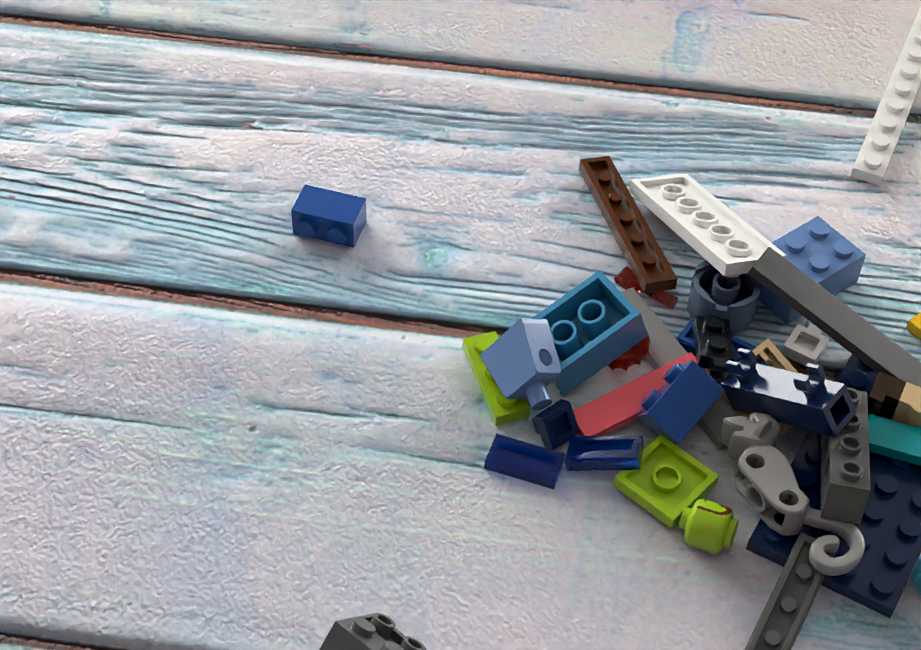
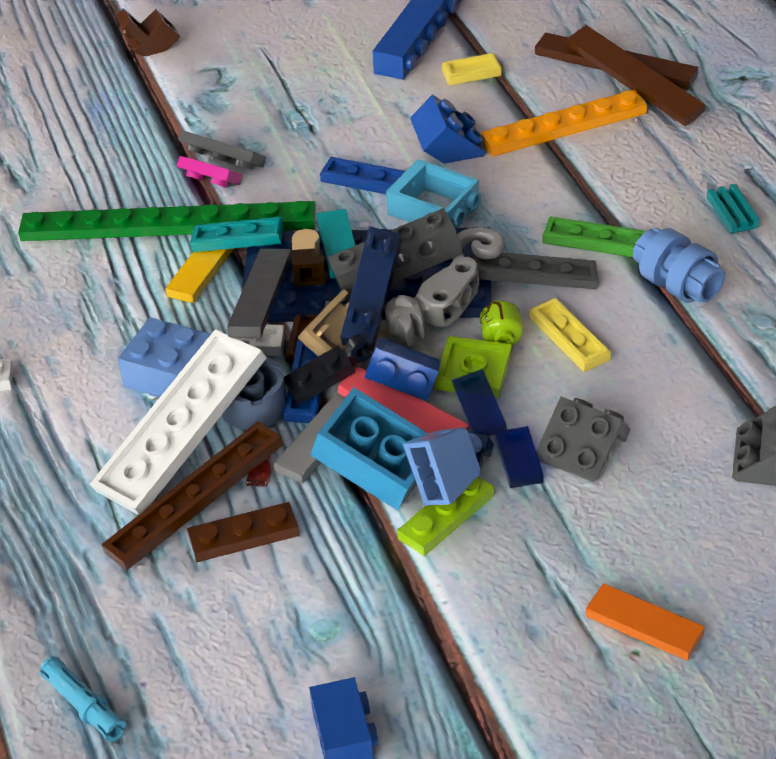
camera: 115 degrees left, 5 degrees down
(271, 444) = (645, 621): none -> orange tile
(456, 108) = (92, 707): none -> medium azure pin
(511, 515) = (581, 438): none -> dark grey bracket
(570, 246) = (243, 532): none -> reddish brown plate
(670, 594) = (570, 334): none -> light yellow tile

